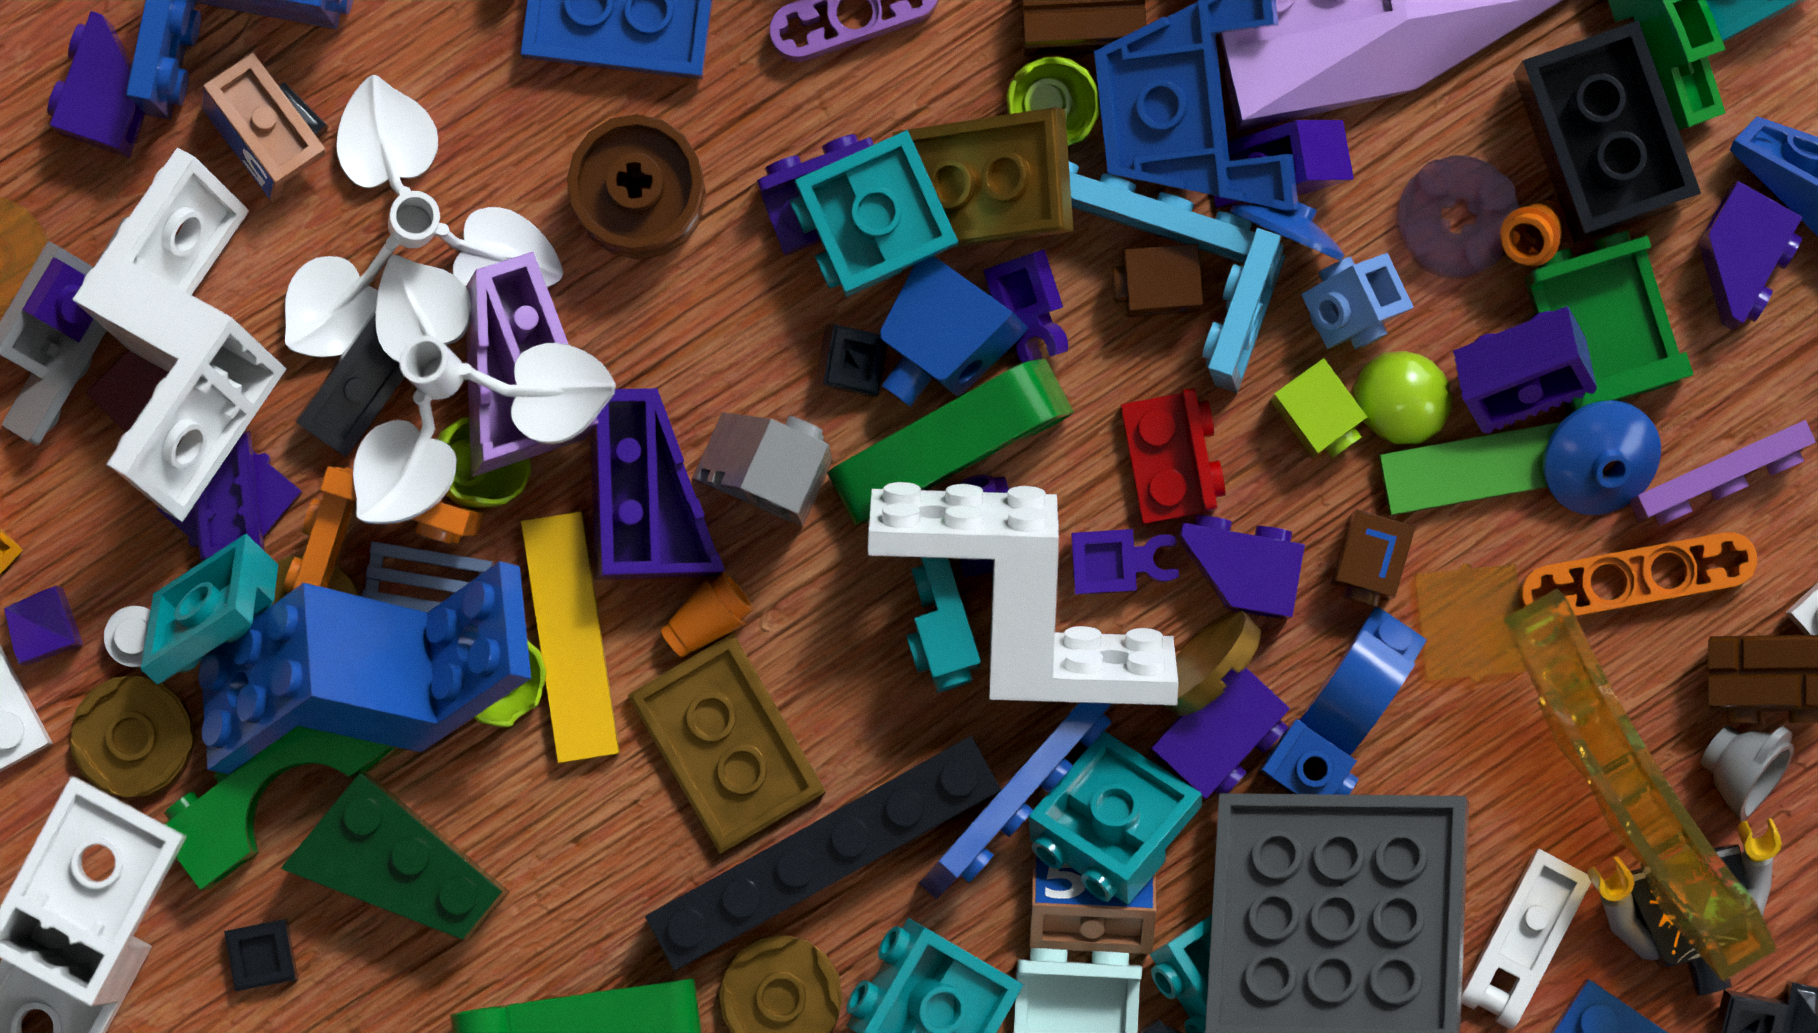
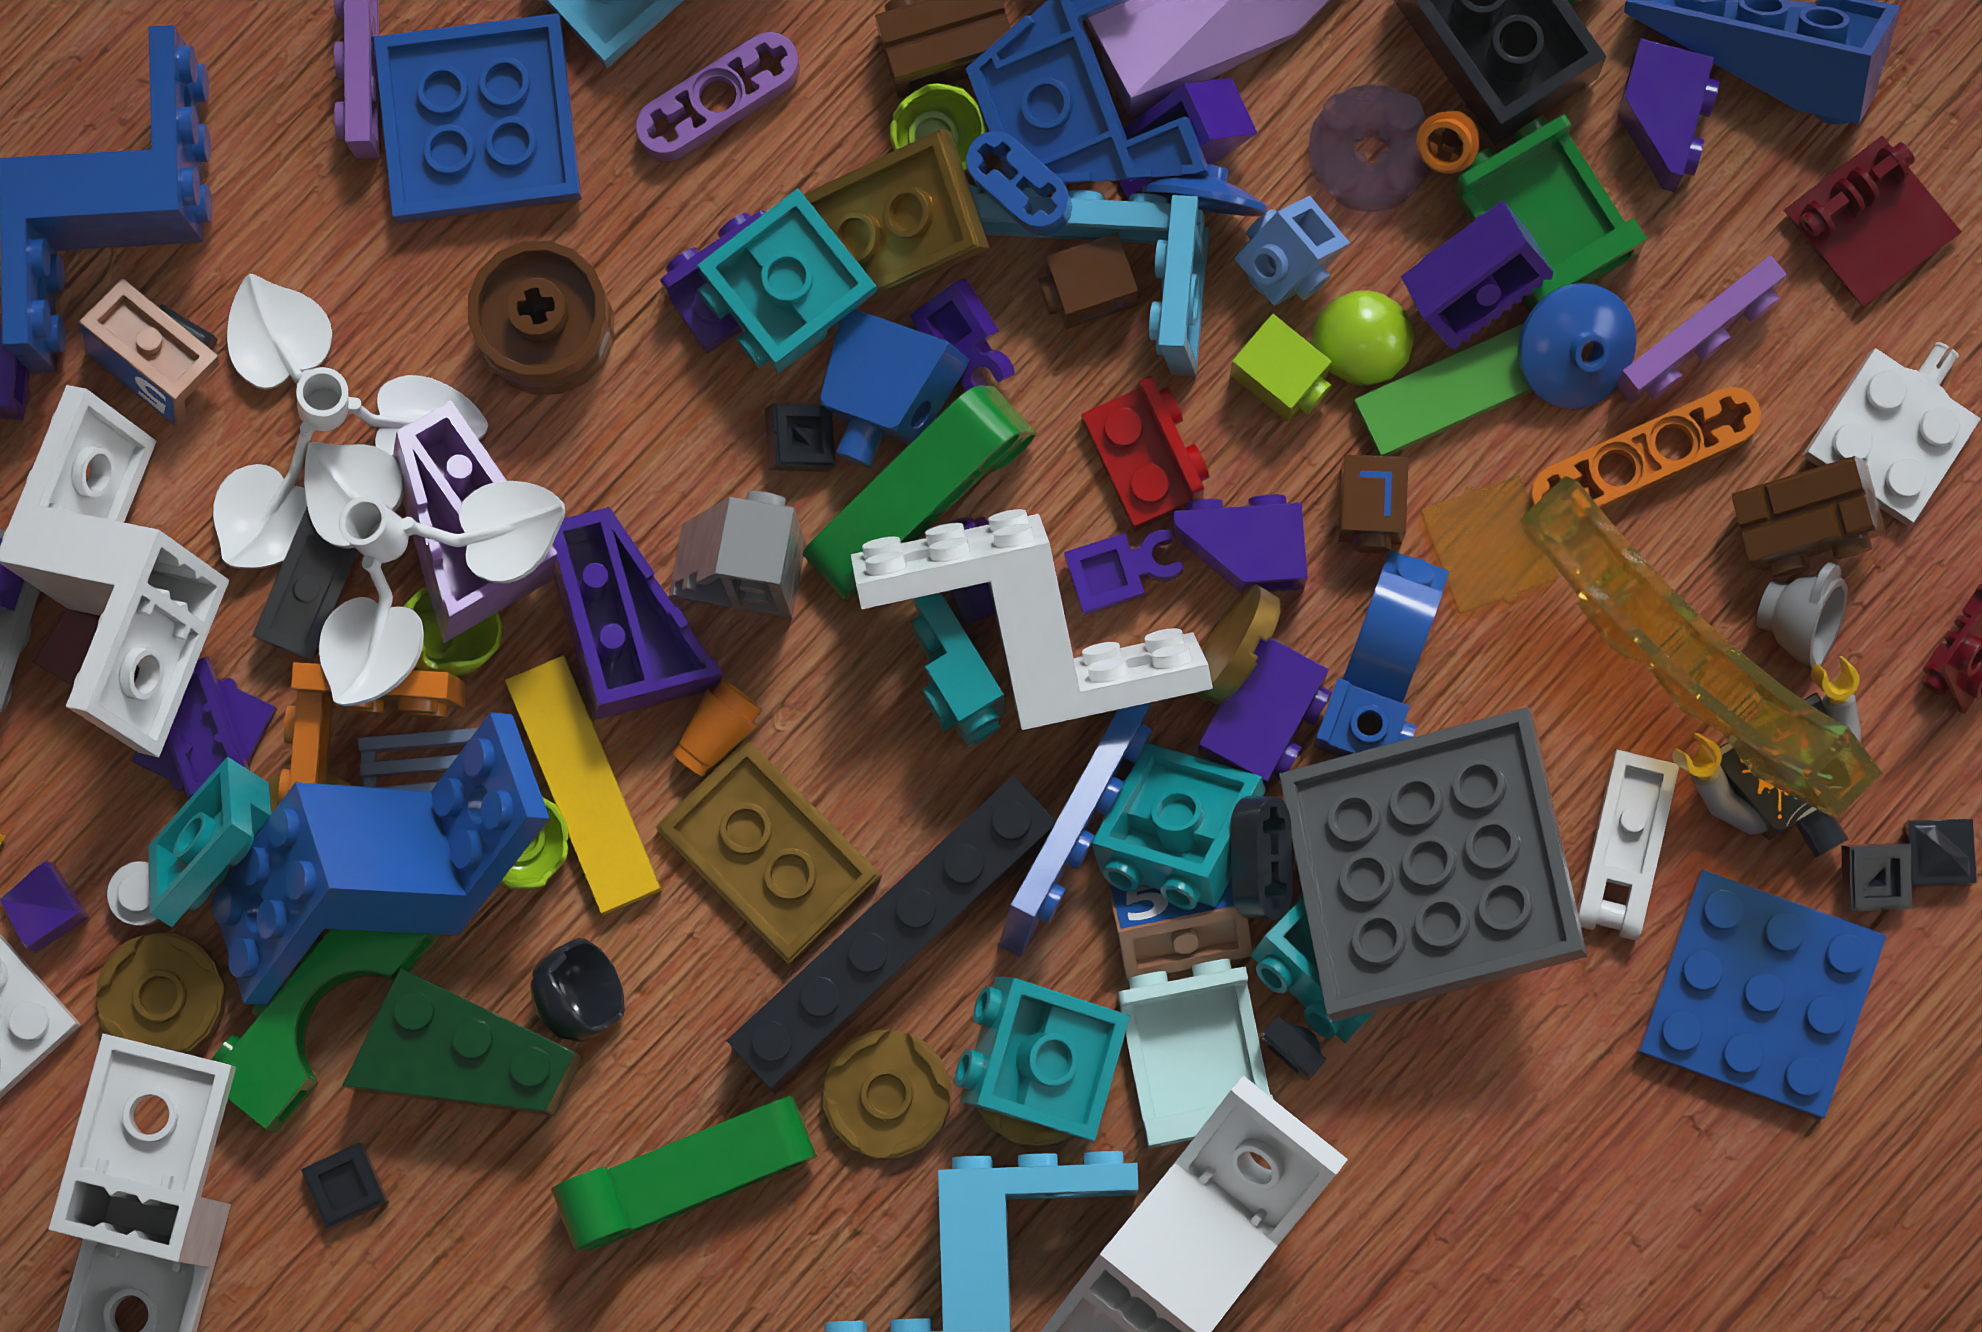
camera: 10 degrees left, 5 degrees down
(518, 831) = (577, 991): none -> black hair
(1129, 168) = (1028, 172): none -> blue beam
(1182, 870) = (1261, 857): none -> black beam

